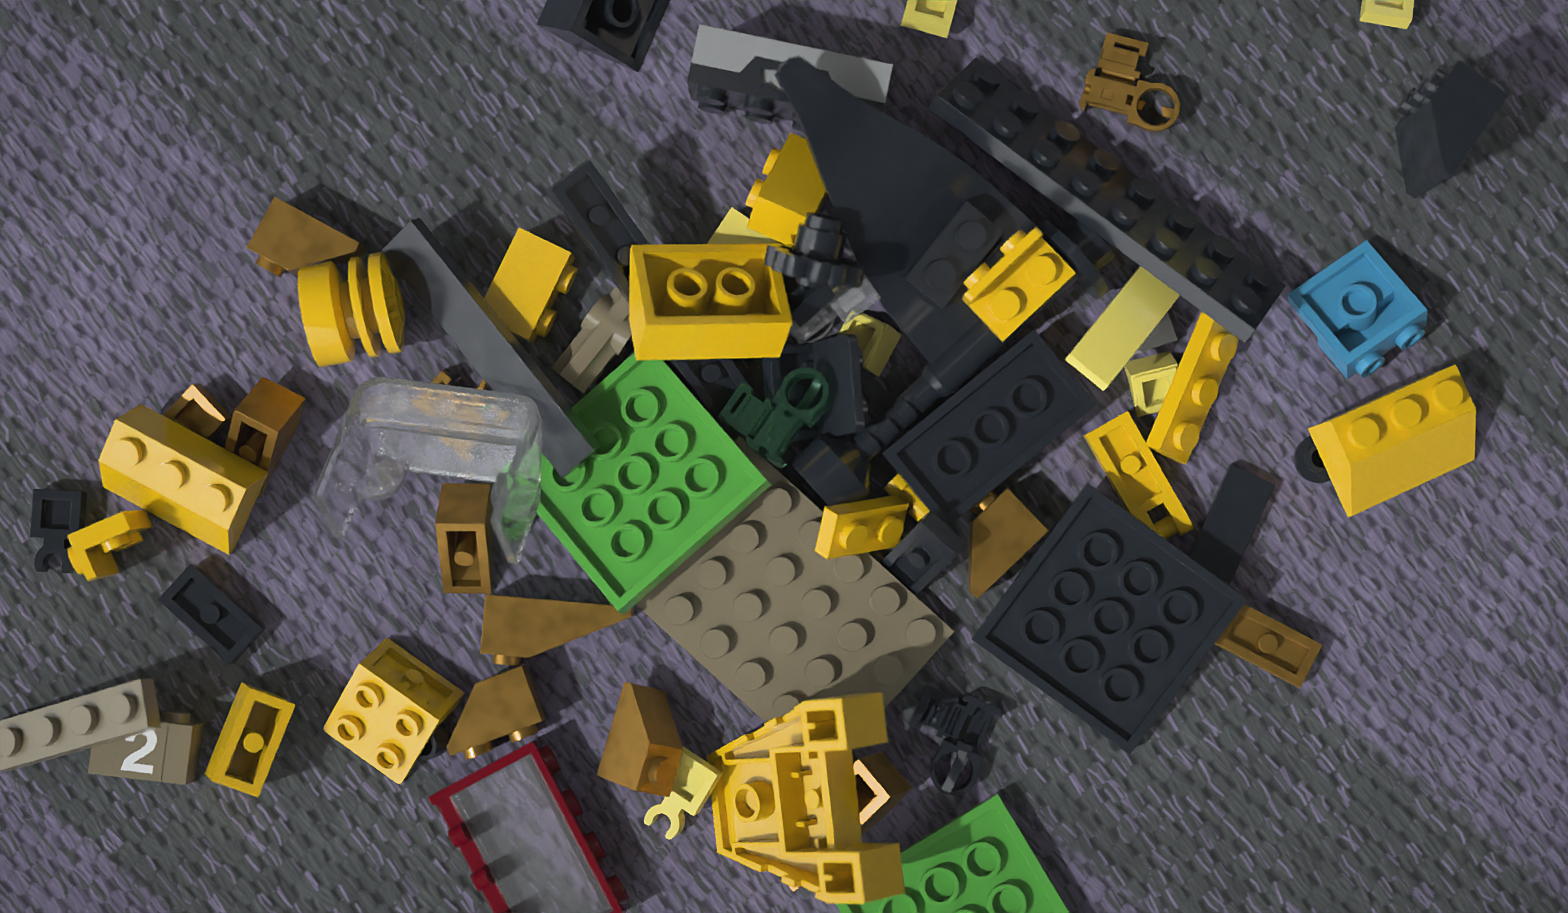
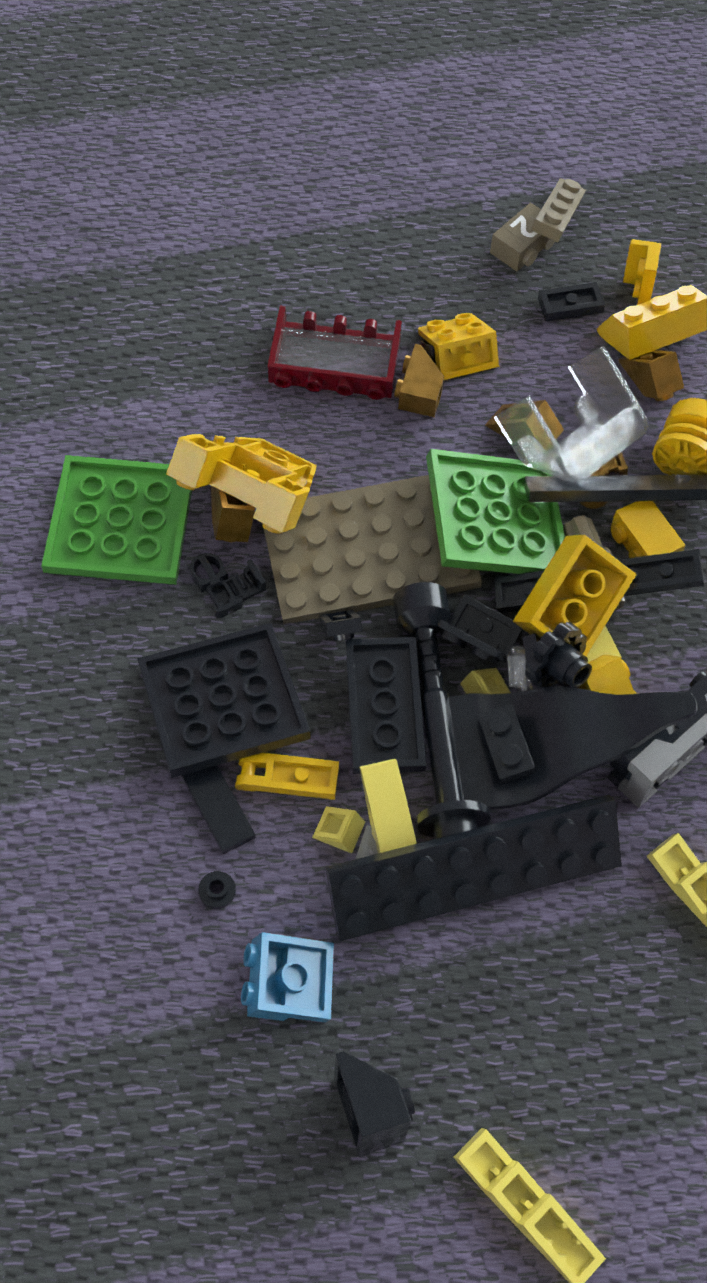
camera: 120 degrees right, 25 degrees down
(53, 518) = (673, 270): black plate -> none
(199, 412) = (687, 352): pearl gold plate -> none
(249, 739) = (494, 273): yellow brick -> none
(531, 626) = (455, 423): pearl gold slope -> none
(642, 742) = (349, 432): pearl gold slope -> none
(689, 792) = (308, 441): light yellow plate -> none
(775, 426) = (482, 589): clear green piece -> none
(861, 526) = (381, 601): yellow plate -> none
(998, 538) = (317, 674): pearl gold slope -> none
(1017, 283) = (463, 764): yellow bracket -> none
(1116, 83) = (545, 937): pearl gold piece -> none
(1192, 390) = (312, 834): yellow plate -> none
(1270, 645) = (134, 778): pearl gold plate -> none
(1398, 440) = (190, 938): yellow slope -> none

